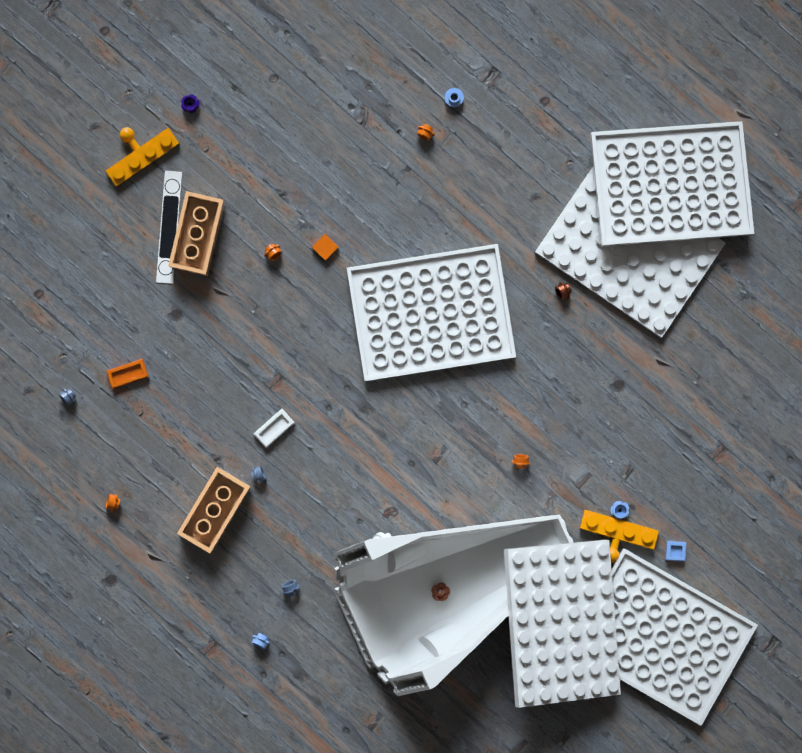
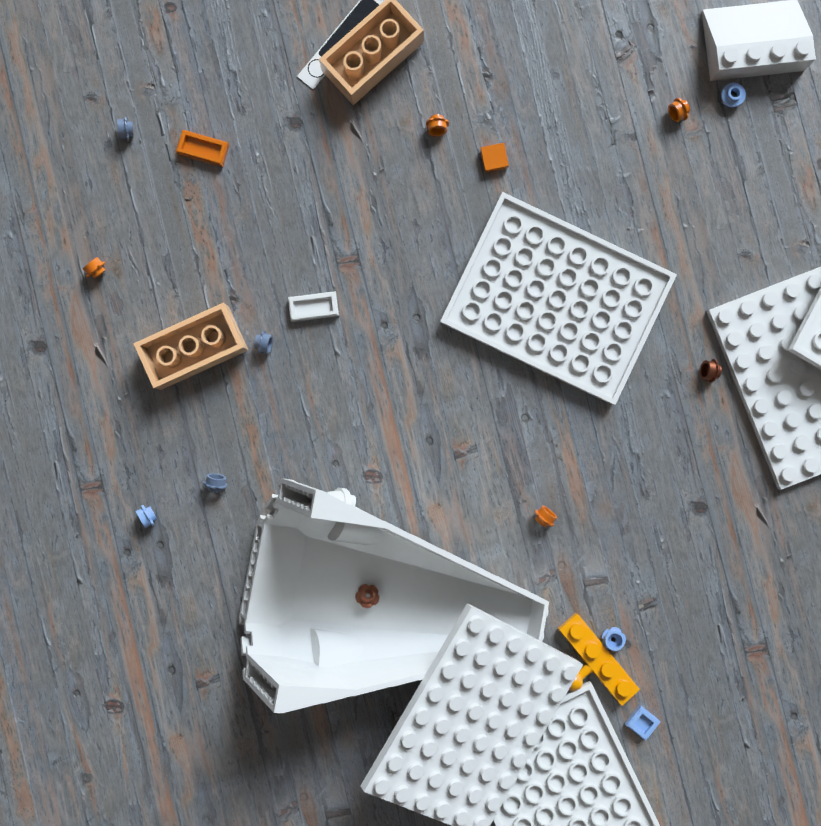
camera: 40 degrees right, 0 degrees up
(443, 49) = (757, 40): none -> white slope

